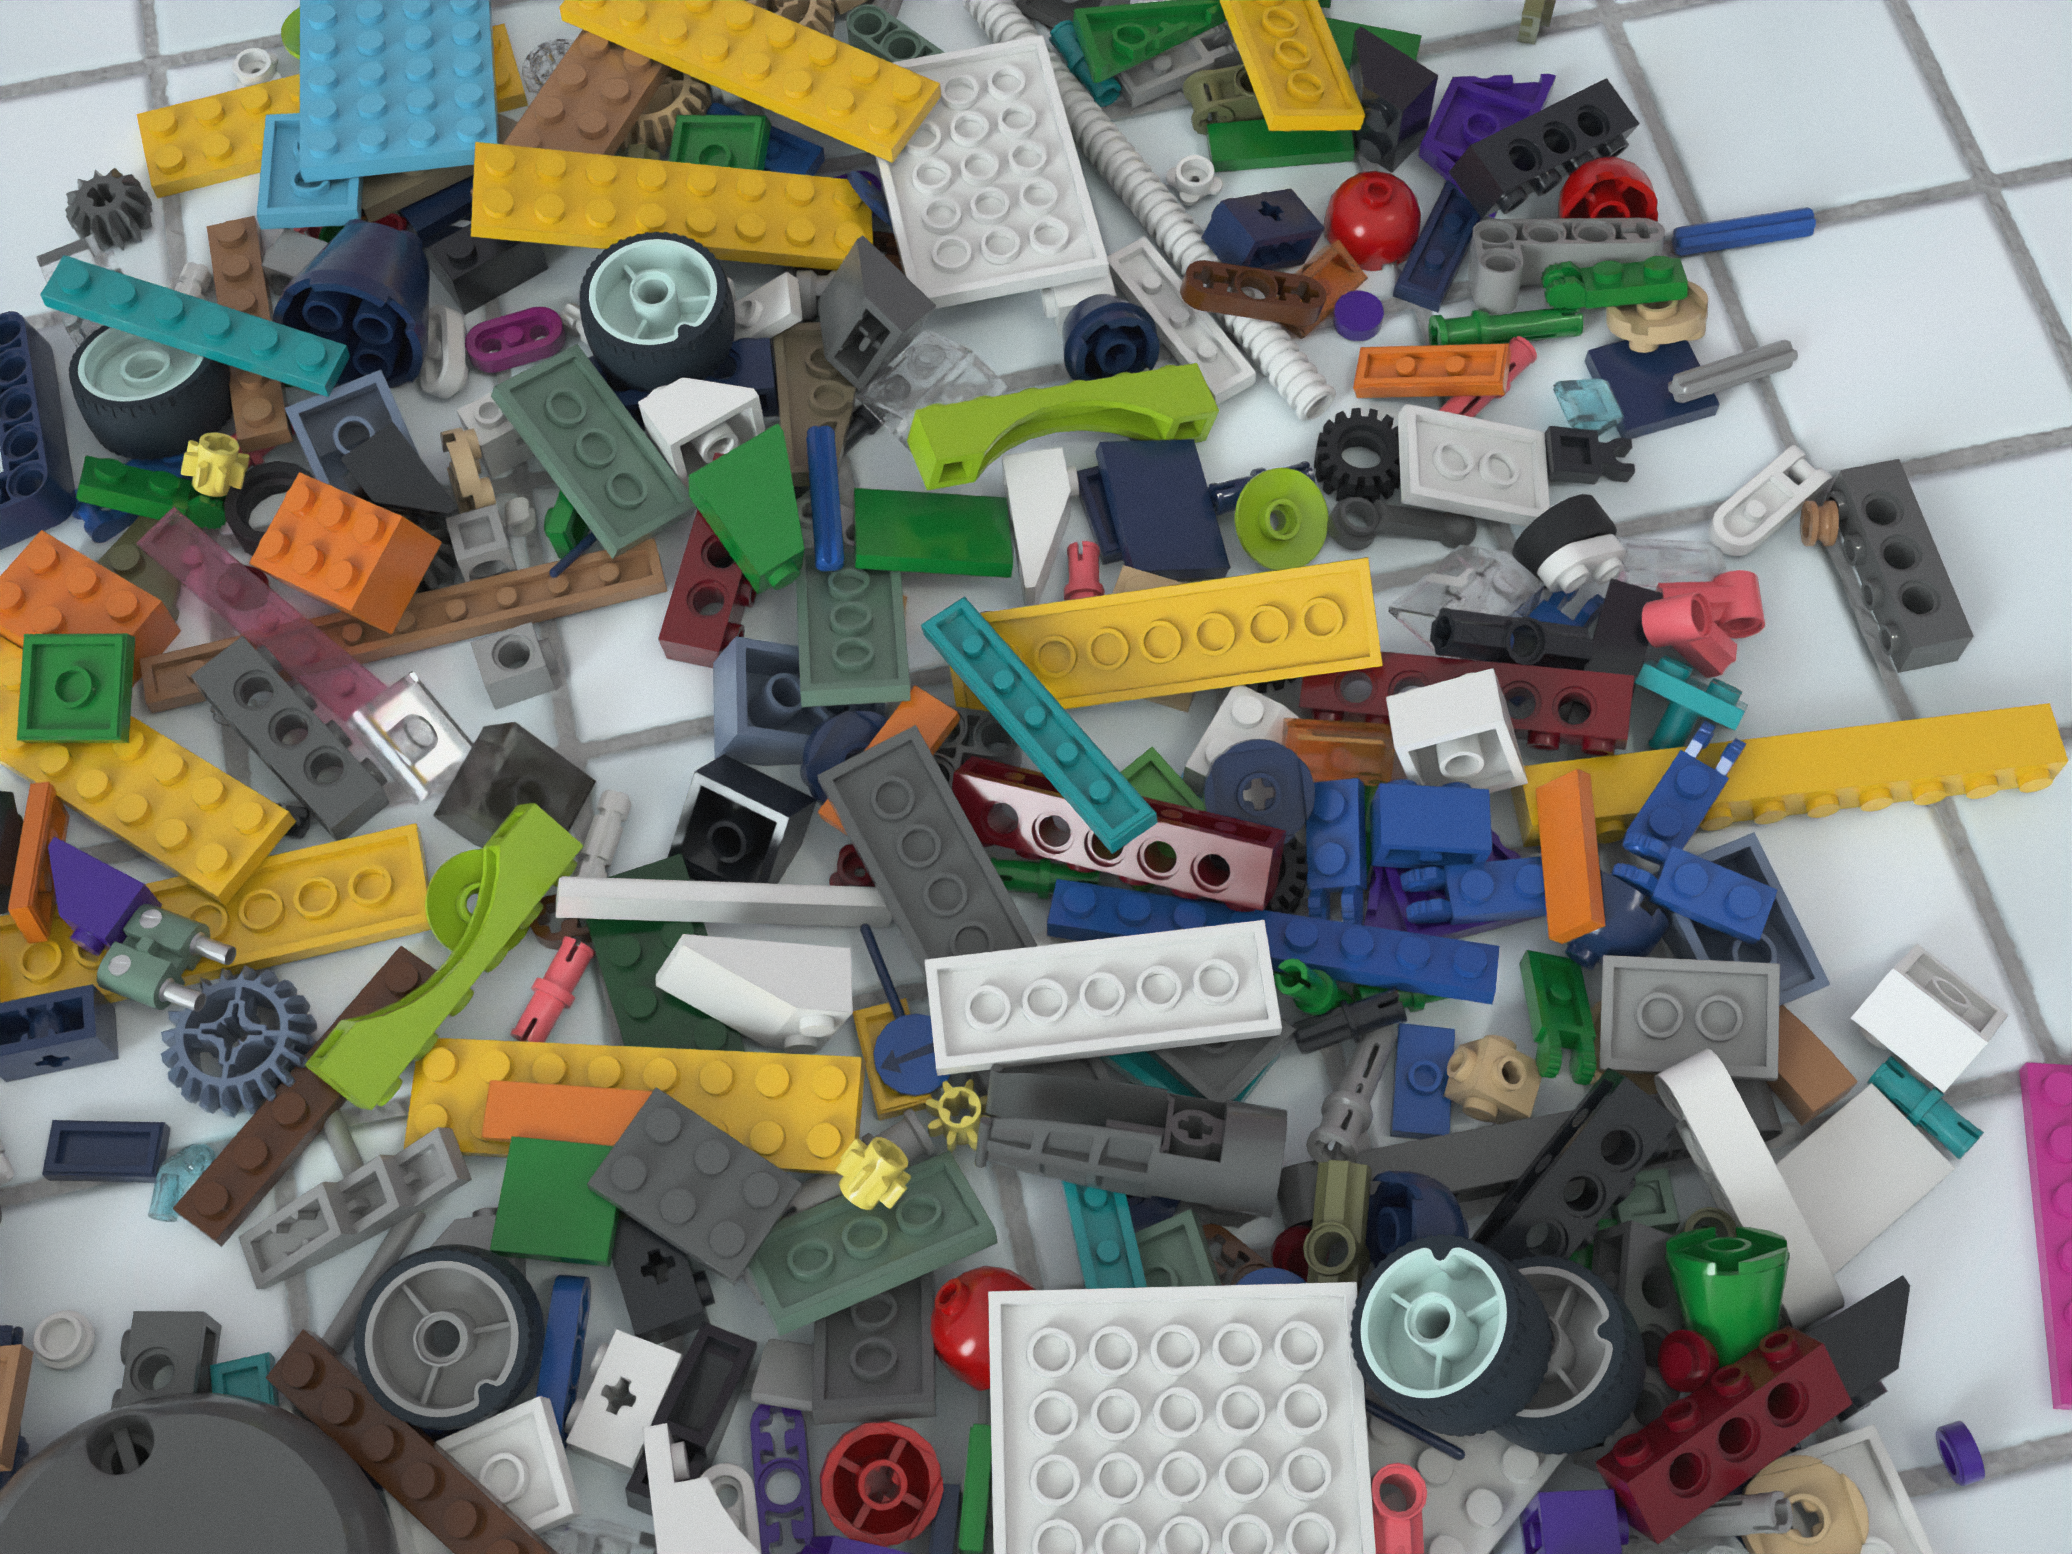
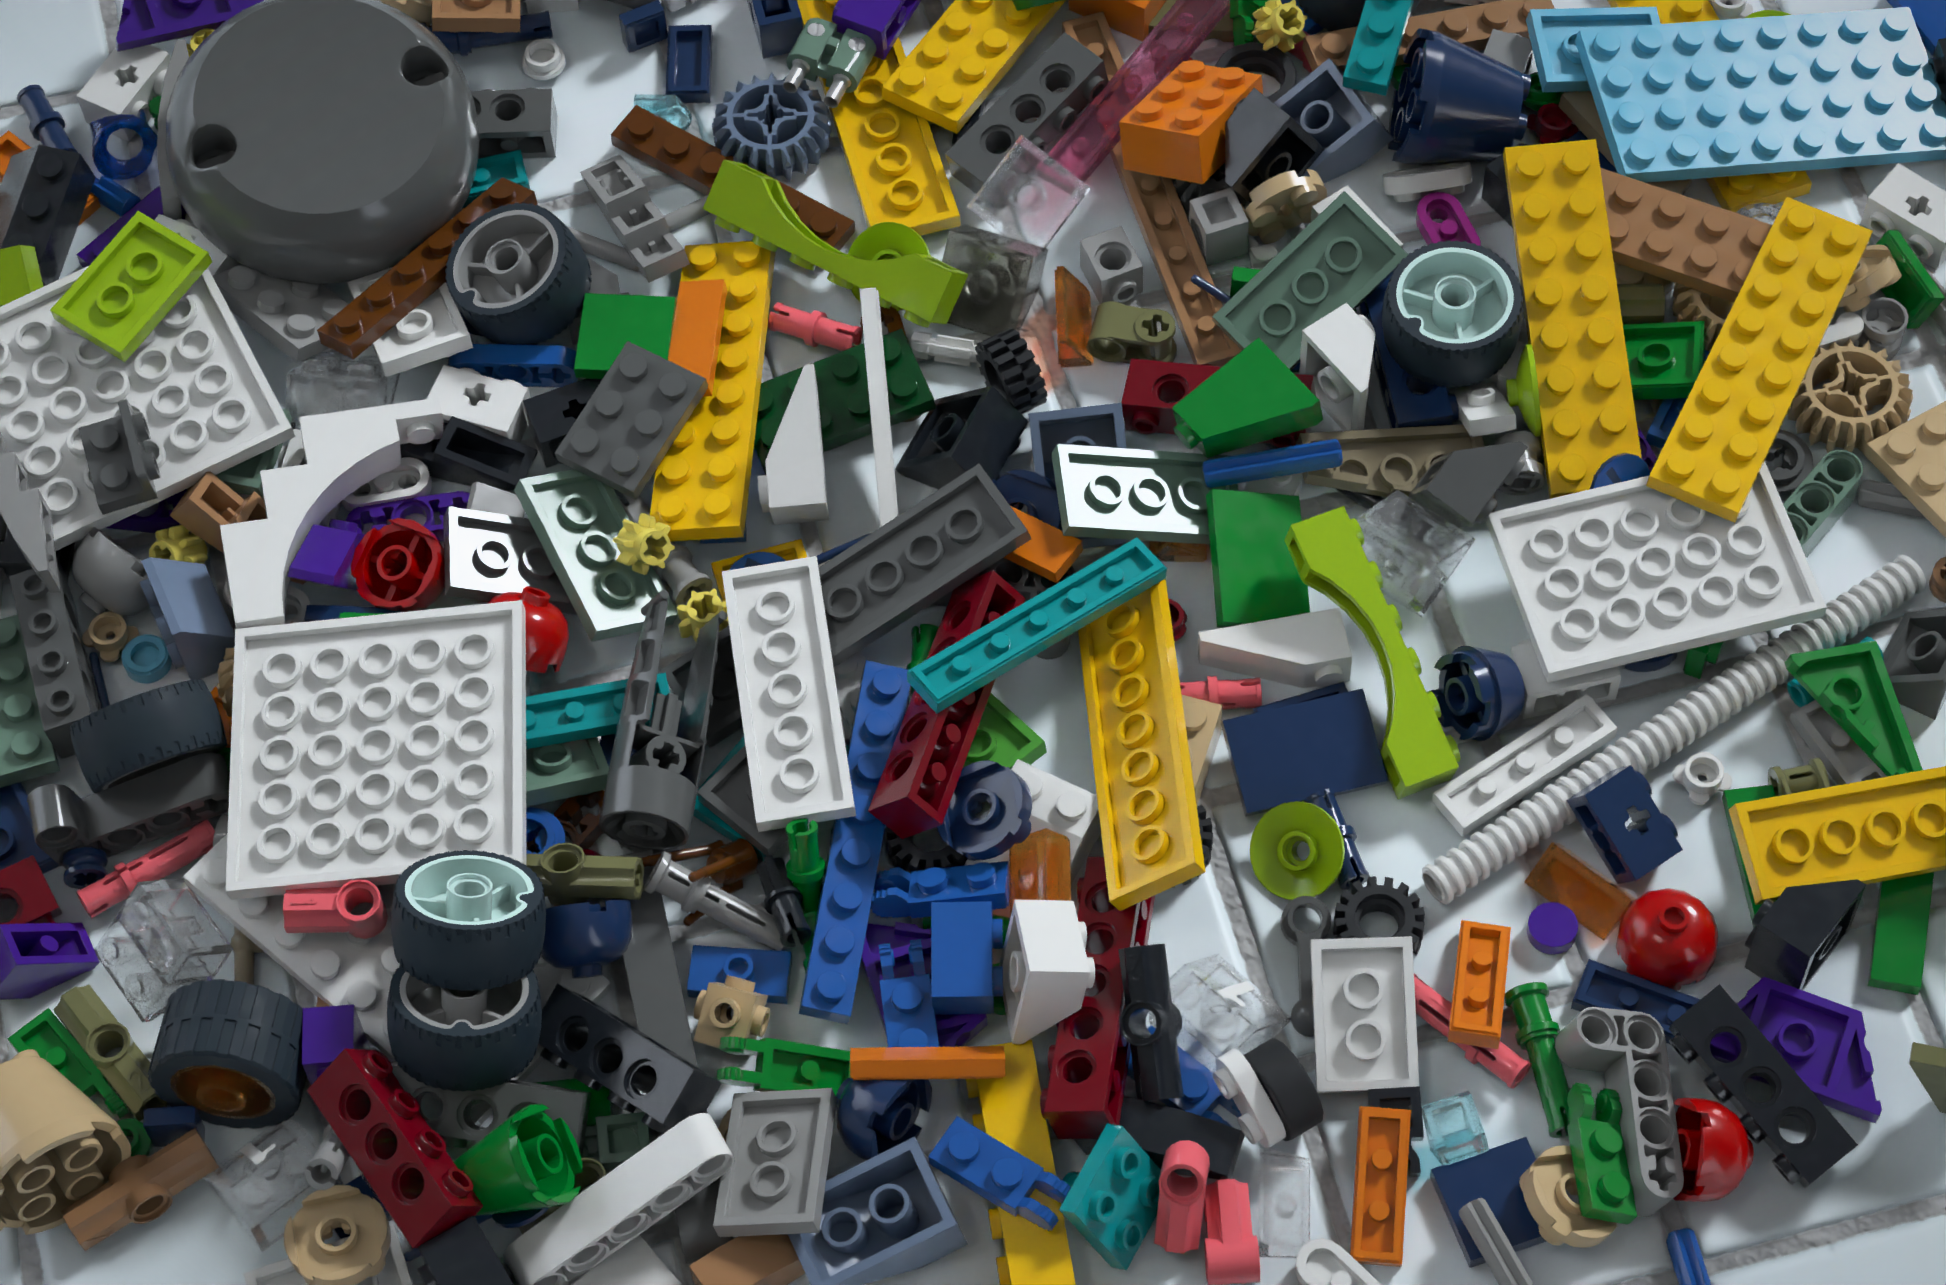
camera: 90 degrees right, 5 degrees down
(40, 1203) = (643, 26): none -> dark blue tile
(578, 717) = (1072, 319): none -> clear orange slope
(611, 647) = (1130, 332): none -> olive piece
(657, 765) = (1011, 370): none -> black tyre
(755, 257) = (1524, 391): none -> lime dish
(1217, 299) = (1529, 845): reddish brown beam -> none
(1292, 1086) = (725, 865): none -> reddish brown plant
(1649, 471) = (1380, 1186): none -> orange tile
(1687, 1360) = (460, 1129): dark red plate -> none
(1698, 888) = (895, 1167): blue hinge -> none

